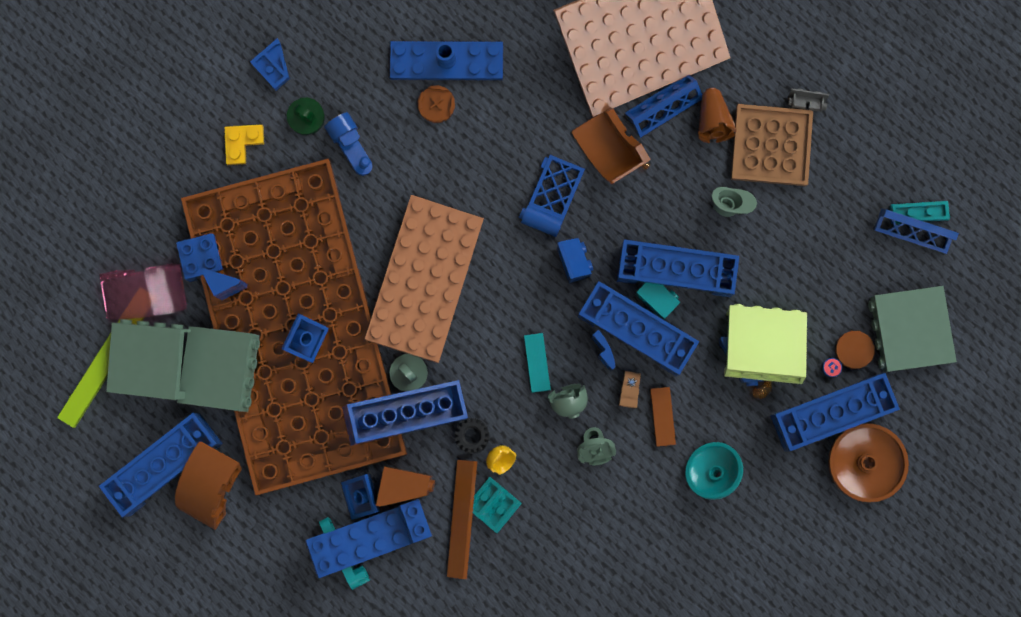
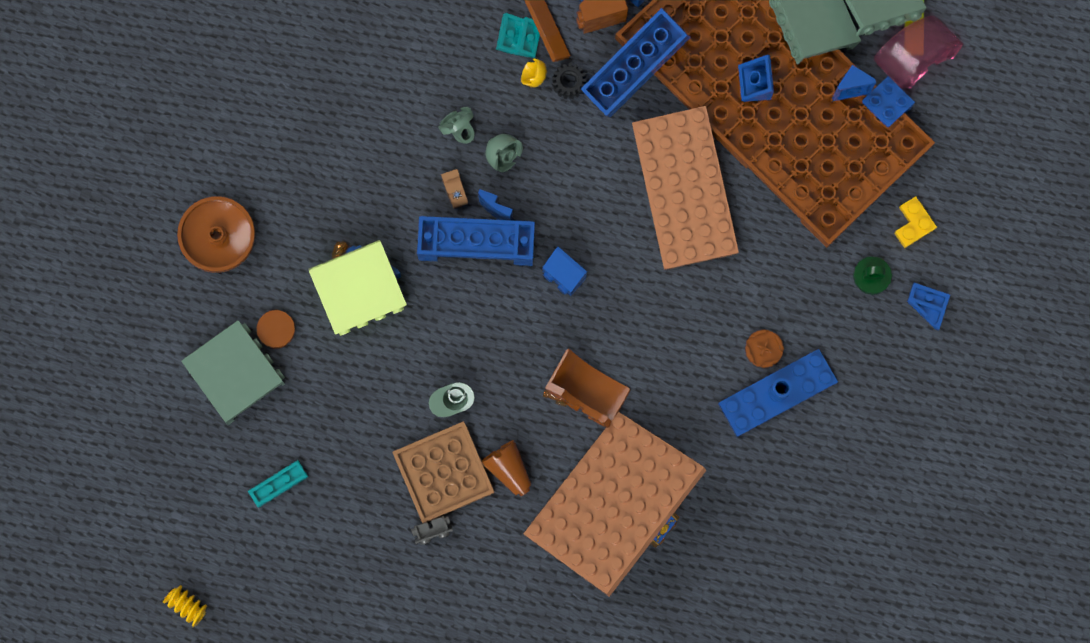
camera: 145 degrees right, 5 degrees down
(343, 132) = (831, 277): blue piece -> none
(408, 372) = (652, 103): sand green tile -> none
(537, 362) = (547, 171): teal tile -> none
(540, 217) = (609, 296): blue piece -> none
(658, 299) = (473, 279): teal brick -> none
(663, 101) = (563, 458): blue fence -> none
(663, 416) = (414, 183): dark orange tile -> none
(678, 267) = (469, 310): blue plate -> none
(706, 463) = (355, 154): teal dish -> none
(832, 367) = (288, 303): tile -> none
(835, 412) = (266, 259): blue plate -> none
(911, 222) = (275, 466): blue fence -> none

